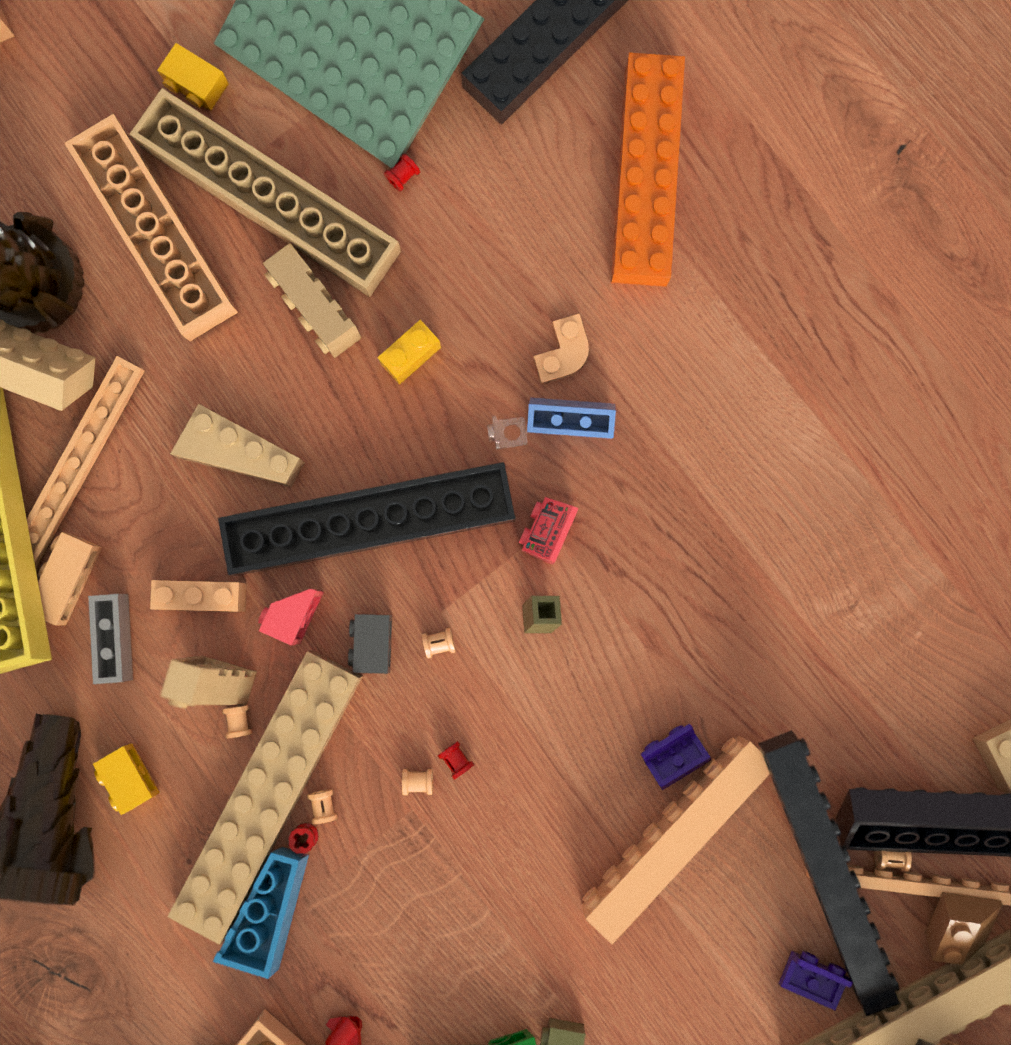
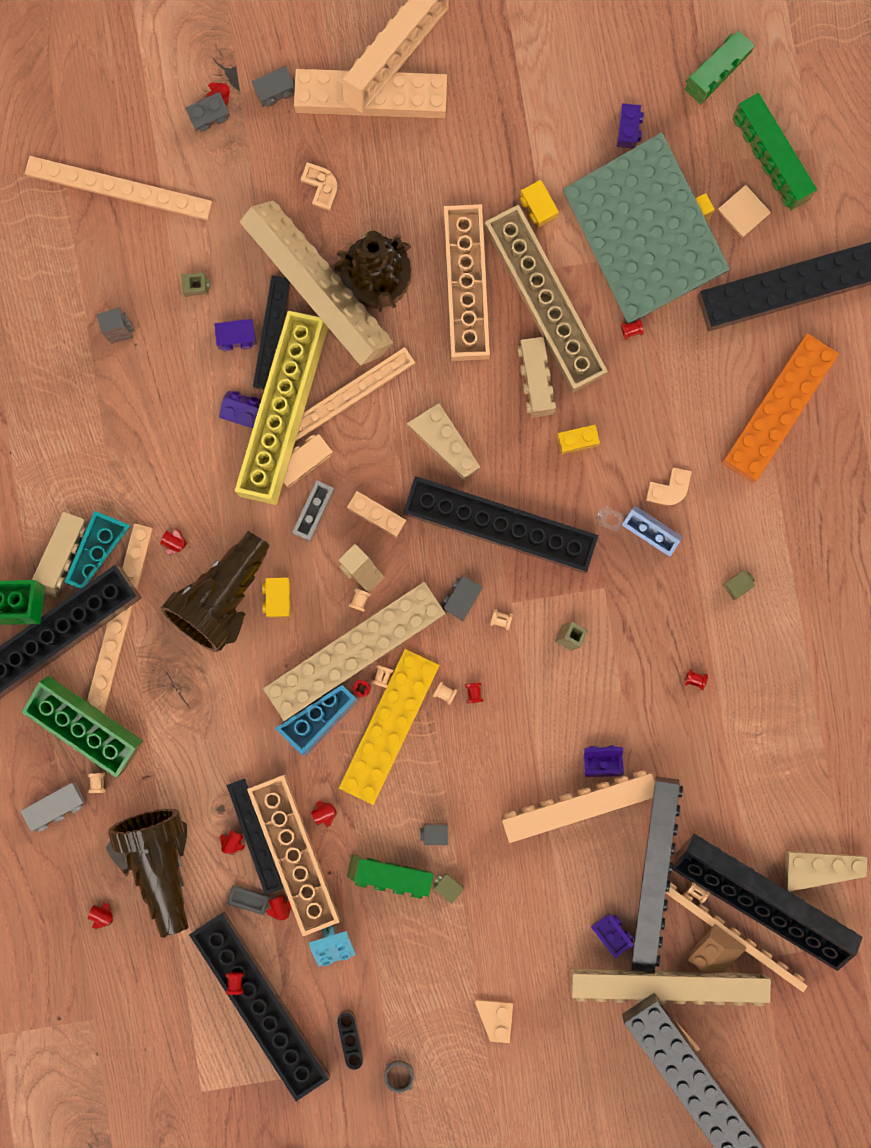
camera: 30 degrees right, 0 degrees up
(291, 616) = (425, 555): coral slope -> none
(368, 868) = (389, 727): none -> yellow plate
(506, 982) = (434, 834): none -> dark grey brick
(548, 530) = (602, 589): coral slope -> none
(722, 425) = (739, 584): none -> olive brick
(735, 580) = (696, 679): none -> red bush

